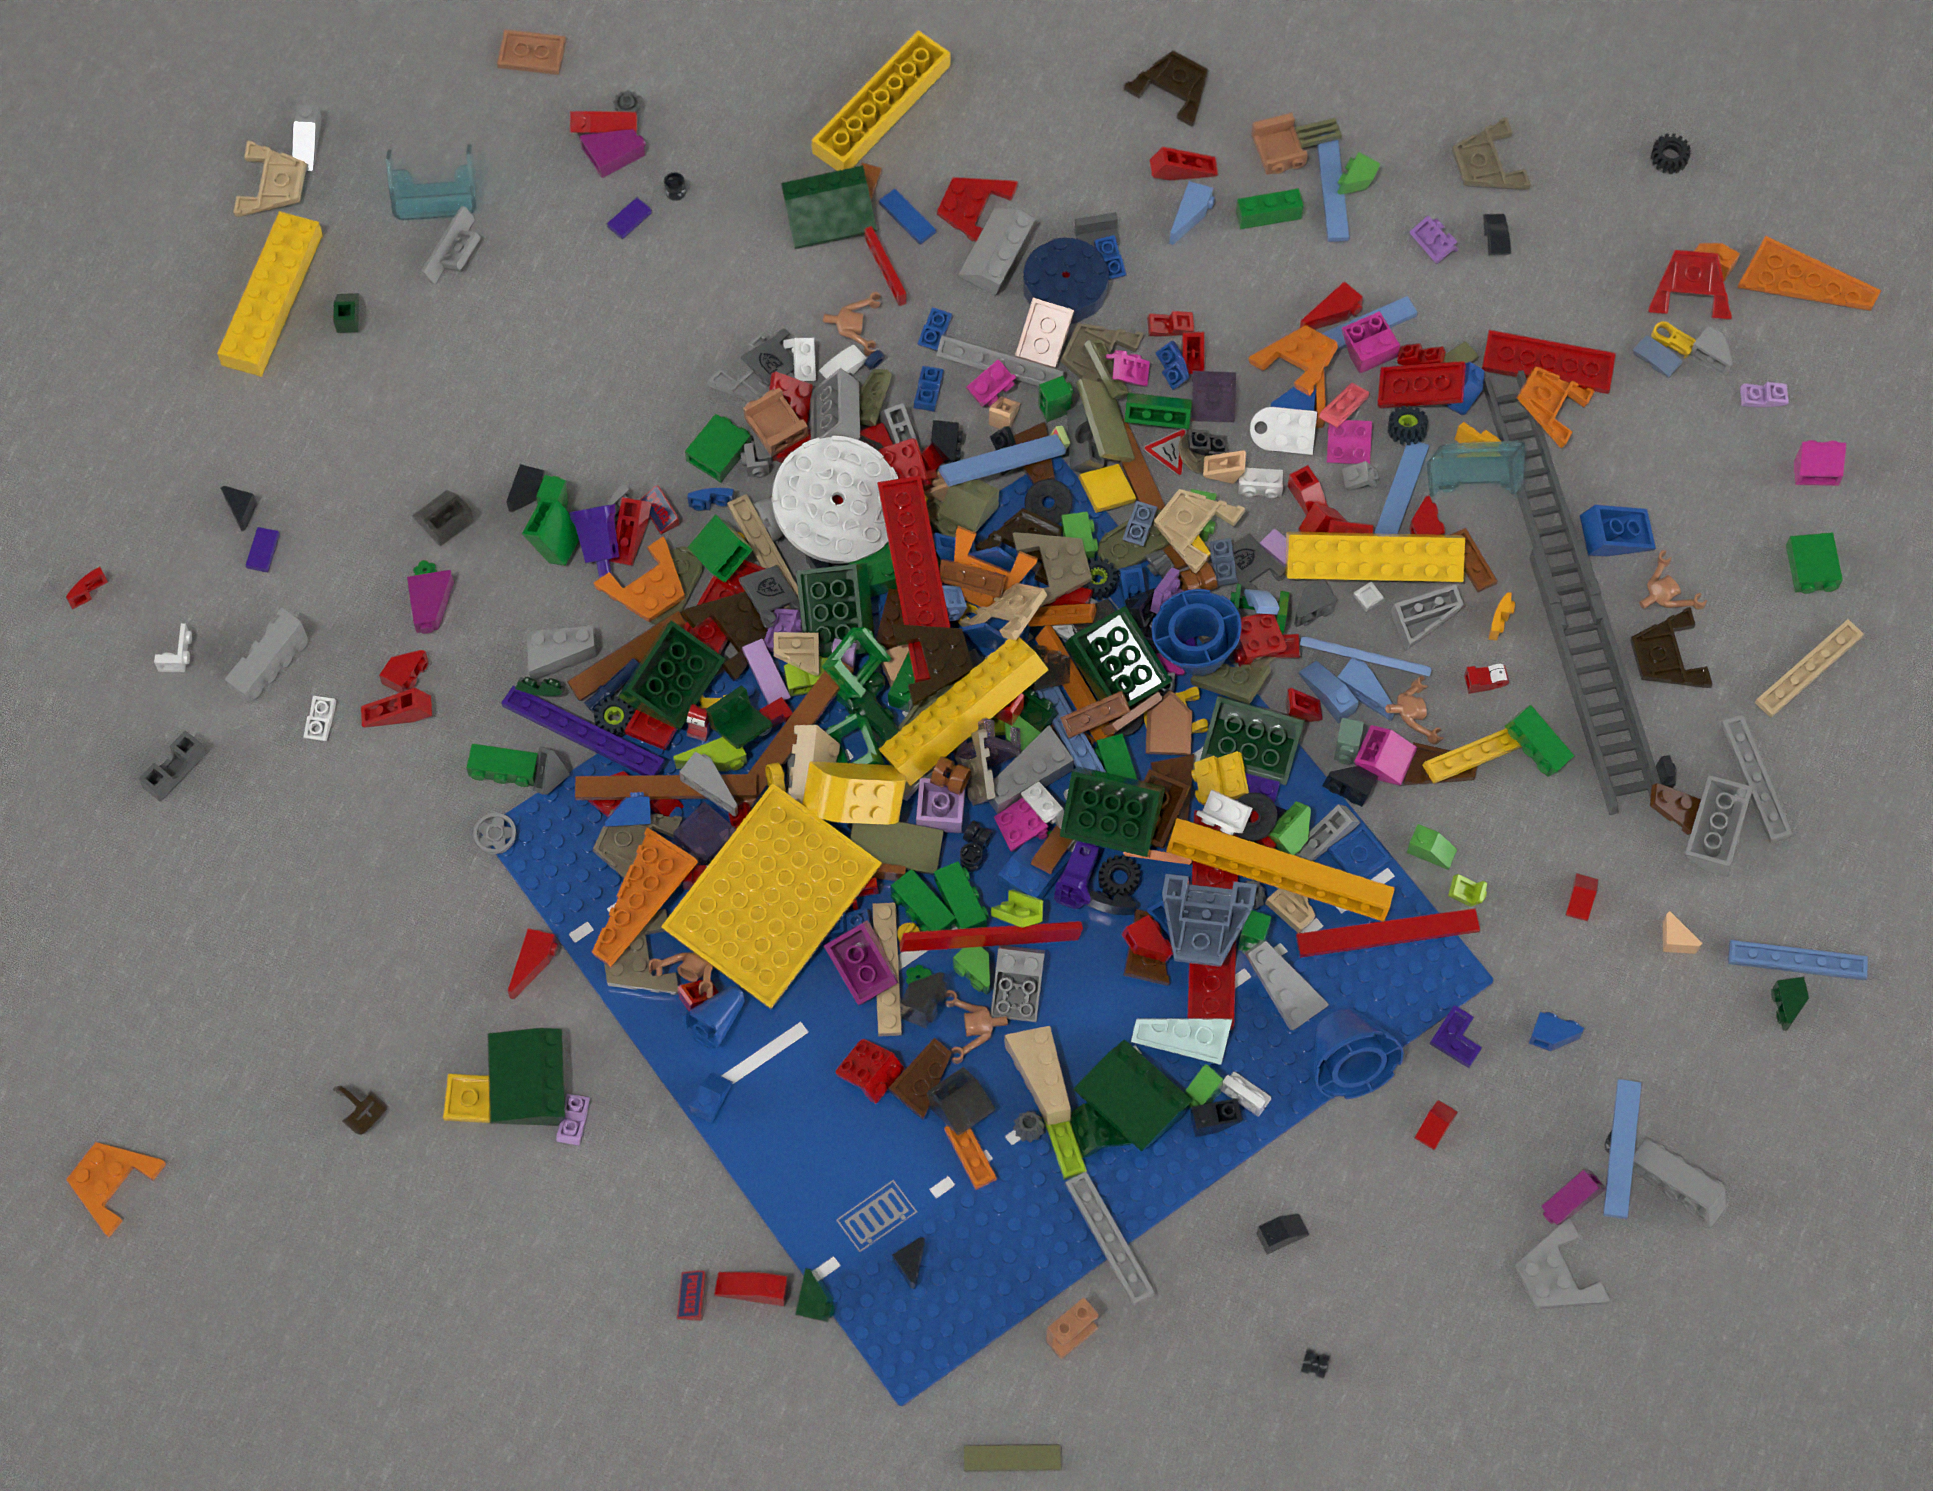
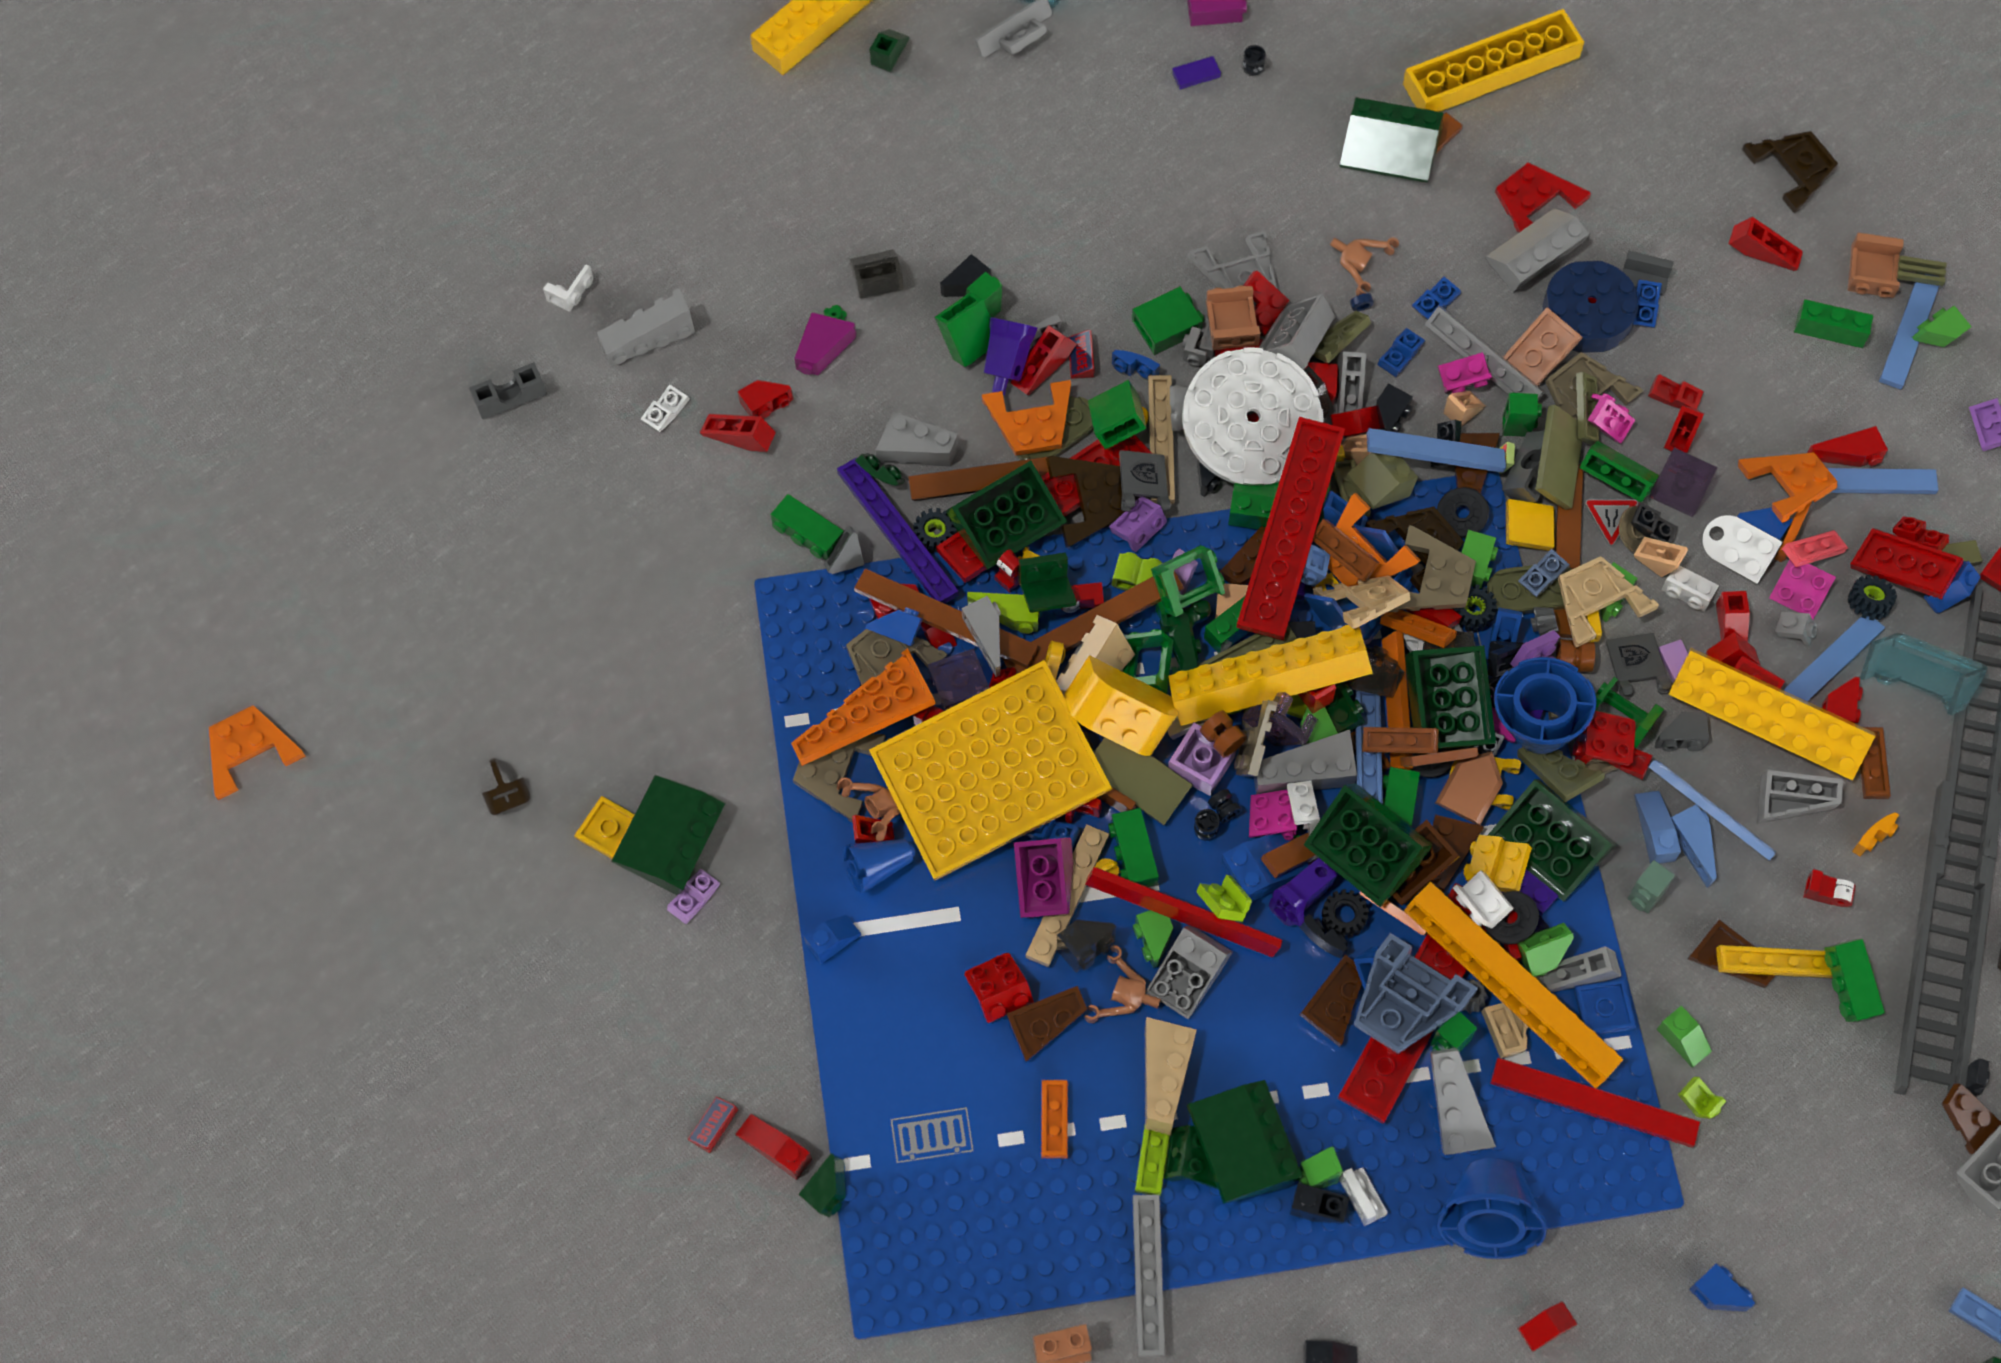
camera: 30 degrees right, 0 degrees up
(80, 592) = (515, 198): red slope -> none
(241, 505) = (699, 182): black slope -> none
(262, 549) = (698, 231): dark purple tile -> none
(494, 833) = (765, 588): light grey wheel -> none
(533, 958) = (737, 723): red slope -> none
(612, 685) = (947, 500): dark blue pin -> none
(765, 671) = (1100, 551): lavender tile -> none
(770, 358) = (1265, 258): dark grey flag -> none
(798, 650) = (1139, 544): tan wing -> none
(803, 357) = (1292, 270): white bracket -> none
(834, 602) = (1196, 514): dark green slope -> none
(849, 360) = (1335, 292): white slope -> none
(885, 266) = (1418, 218): red tile -> none
(907, 216) = (1464, 181): blue tile -> none
(907, 460) = (1340, 410): red bracket -> none
(909, 1260) = (938, 1197): black slope -> none
(918, 971) = (1092, 912): green plant -> none
(944, 656) = (1277, 613): dark brown wing -> none
(960, 896) = (1176, 859): green brick -> none
(960, 1101) = (1069, 1062): clear smoke slope -> none
(1028, 1126) = (1126, 1120): dark grey piece -> none
(1146, 940) = (1338, 990): red slope -> none
(1174, 364) = (1659, 433): blue slope -> none
(1189, 1037) = (1334, 1110): light aqua wing -> none
(1191, 210) = (1752, 292): medium blue slope -> none
(1223, 561) = (1611, 649): sand blue slope -> none
(1262, 601) = (1630, 705): light blue slope -> none
(1303, 705) = (1622, 830): red slope -> none
(1351, 783) = (1632, 931): black slope -> none
(1368, 596) = (1745, 751): white tile -> none
(1370, 342) = (1873, 498): dark pink slope -> none
(1385, 755) = (1681, 919): dark pink slope -> none
(1414, 708) = (1736, 885): nougat piece -> none
(1450, 1037) = (1606, 1246): dark purple plate -> none
(1468, 434) = (1932, 634): light orange slope -> none
(1582, 897) = (1821, 1164): red slope -> none
(1678, 937) = (1906, 1257): light nougat slope -> none

